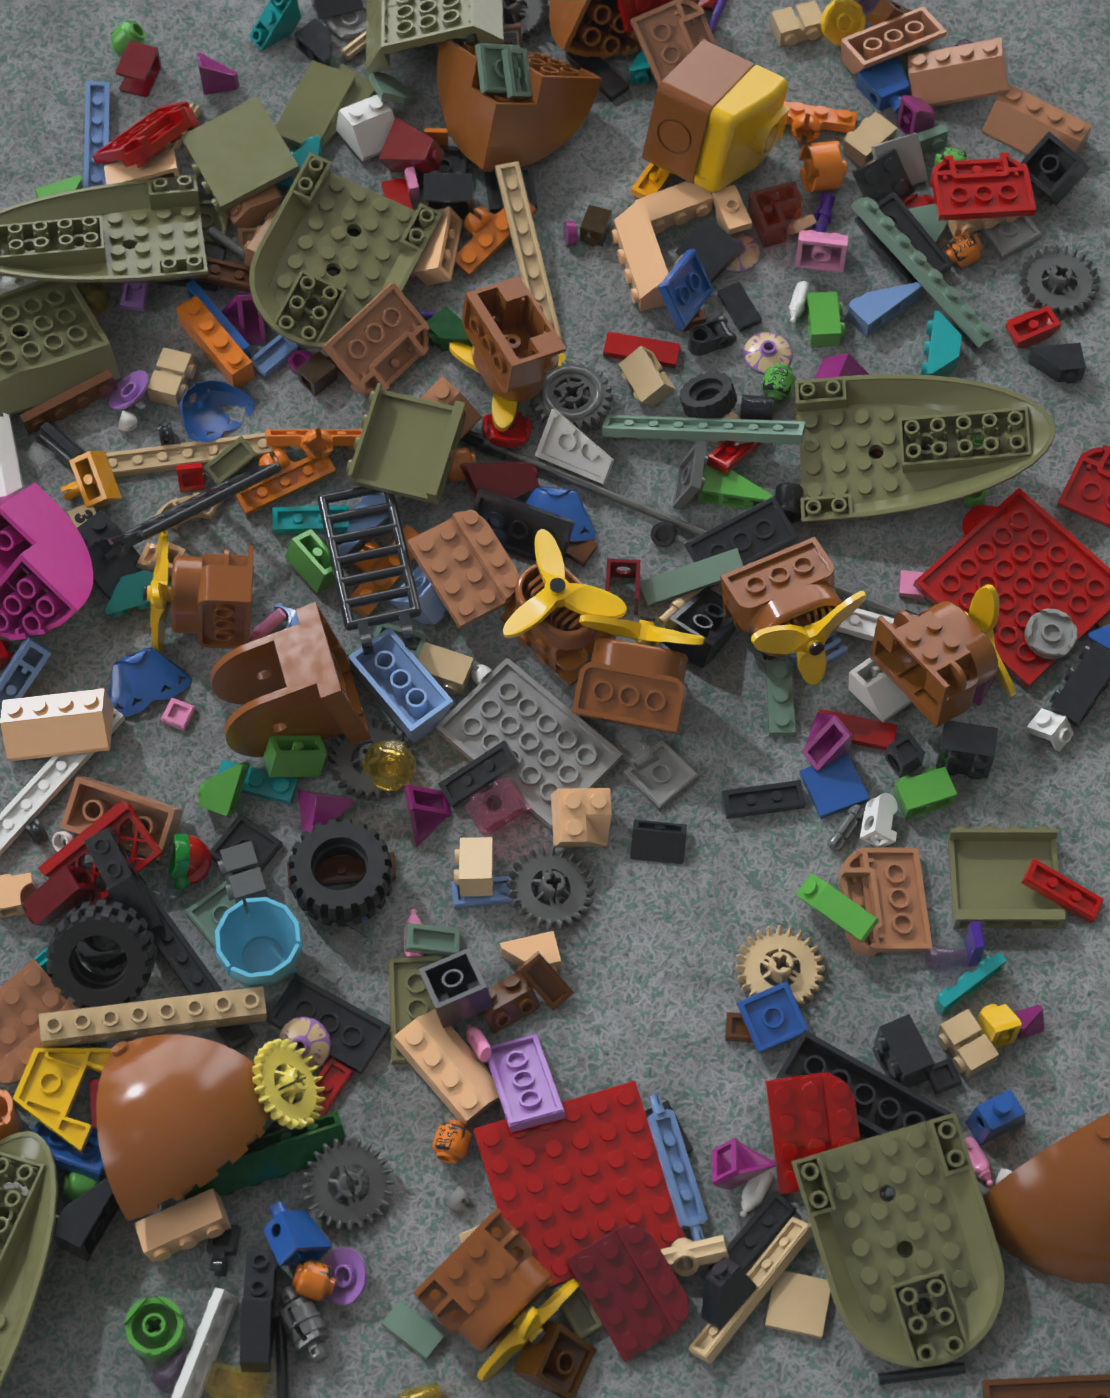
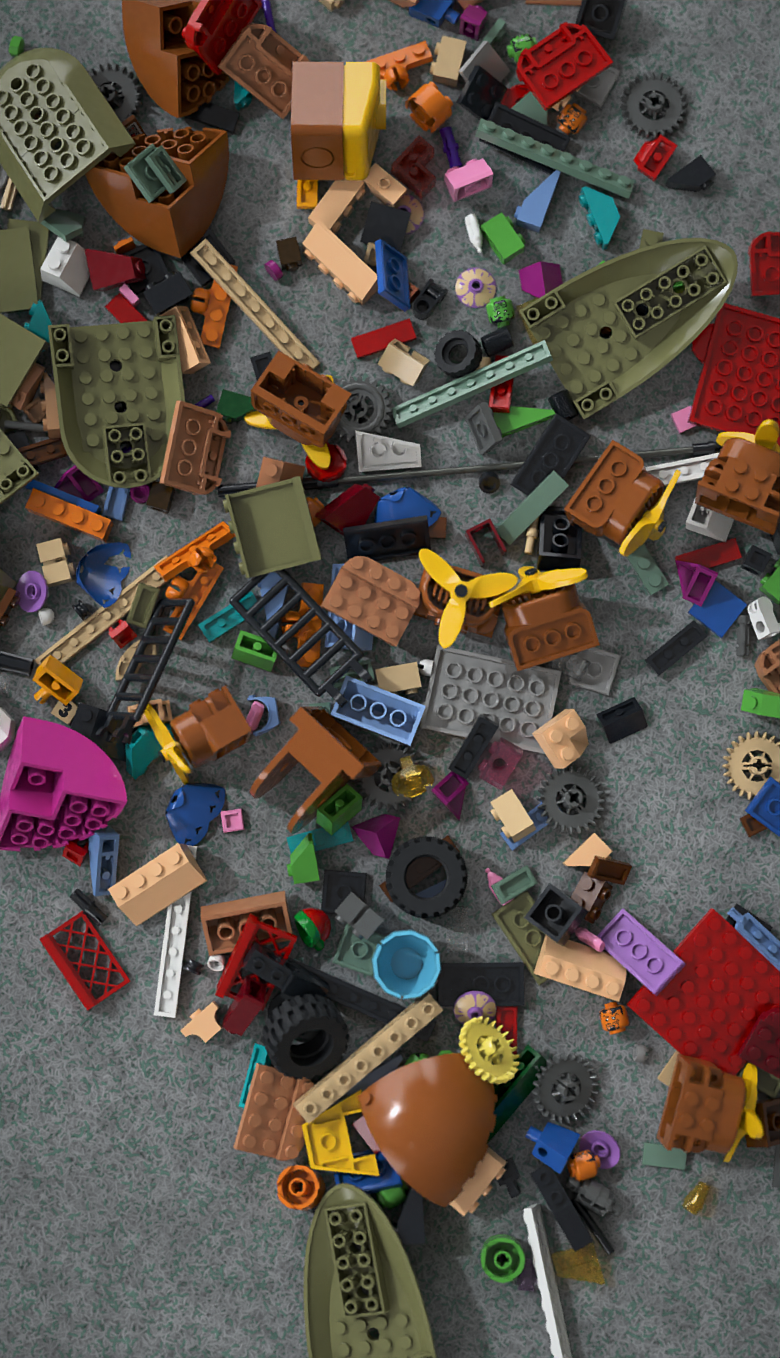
camera: 30 degrees left, 20 degrees up
(739, 306) = (433, 261): black tile -> none
(801, 224) = (440, 165): tan tile -> none

